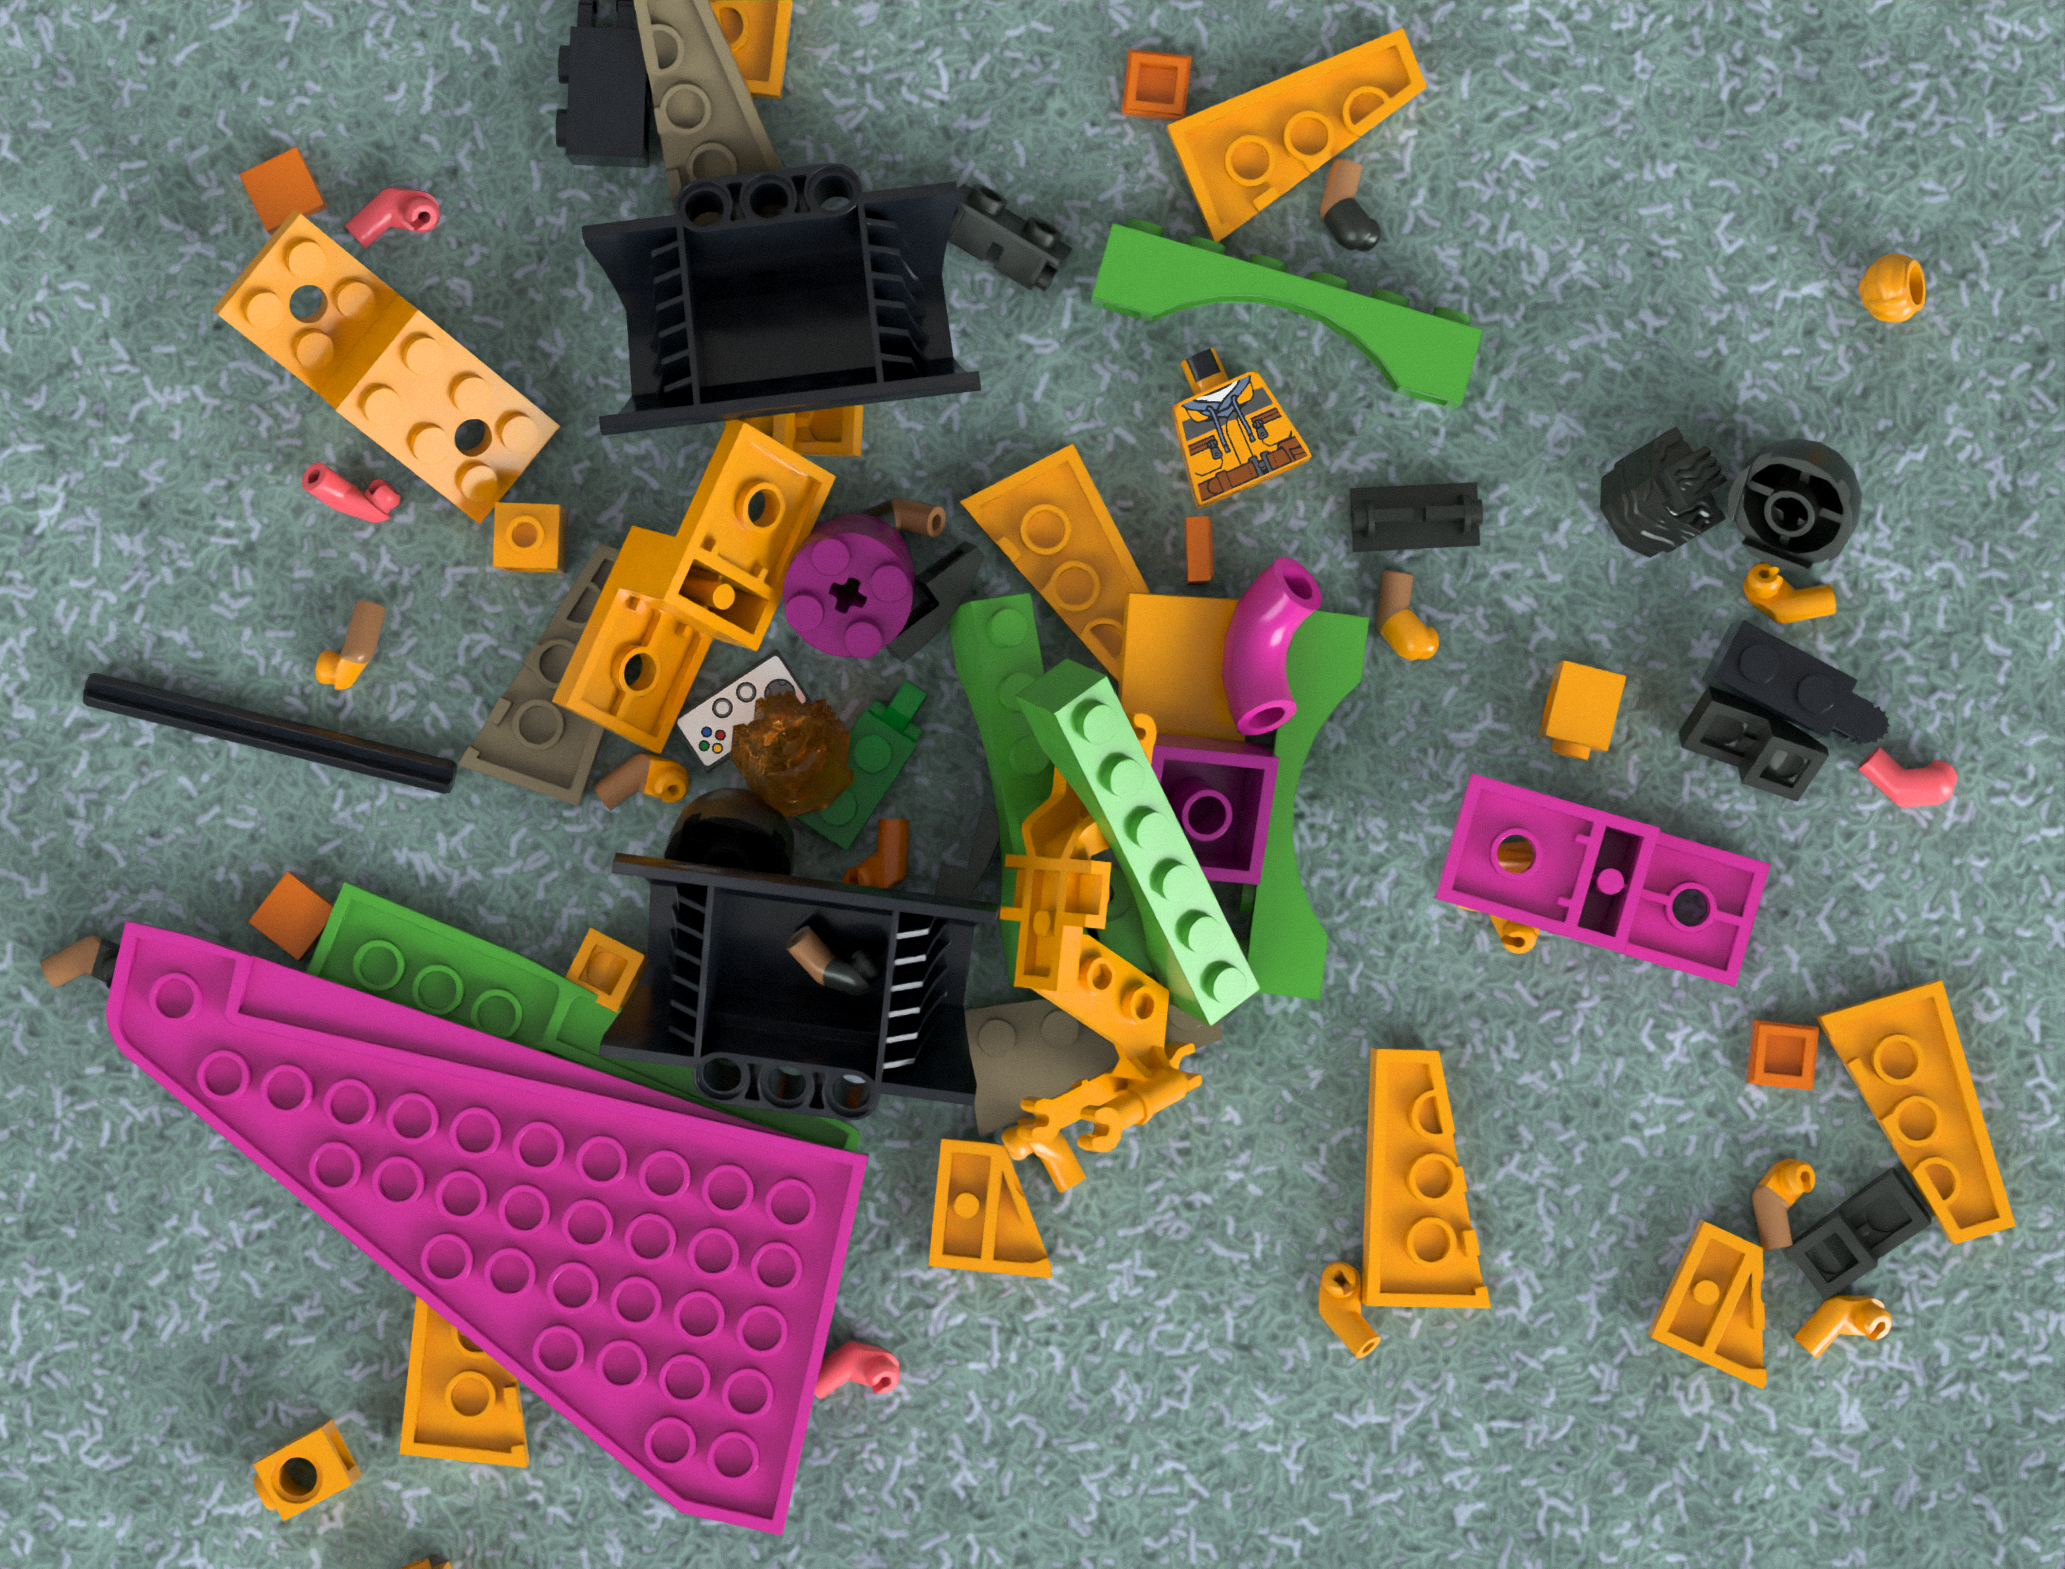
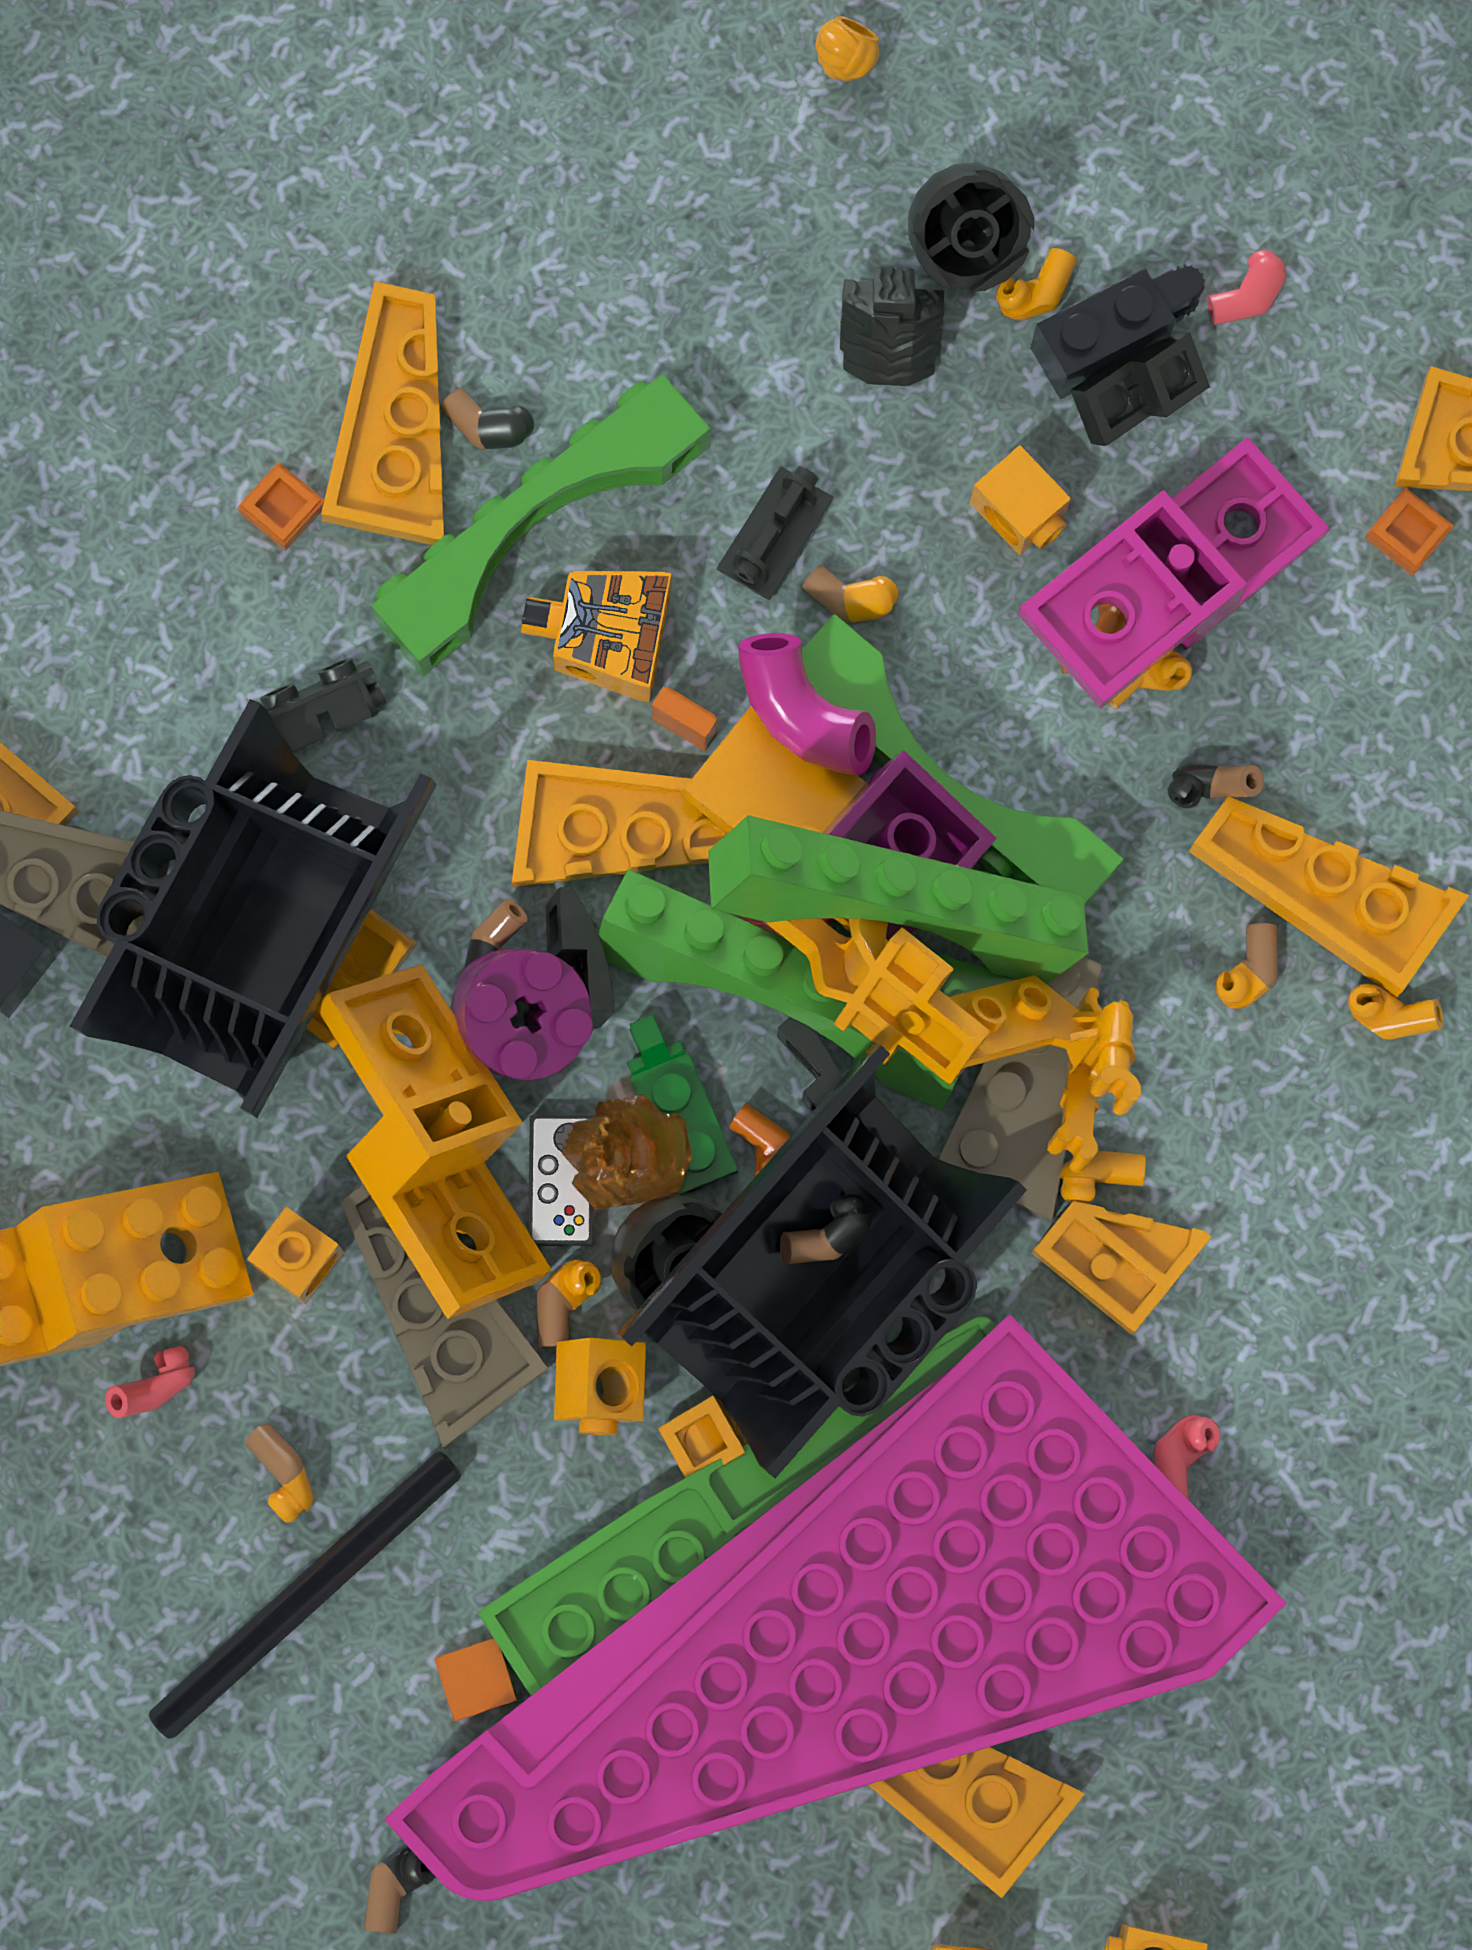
camera: 60 degrees left, 10 degrees down
(588, 833) = (623, 1381): none -> light orange brick
(1301, 1170) = (1256, 973): none -> arm
(1446, 1030) = (1213, 782): none -> arm

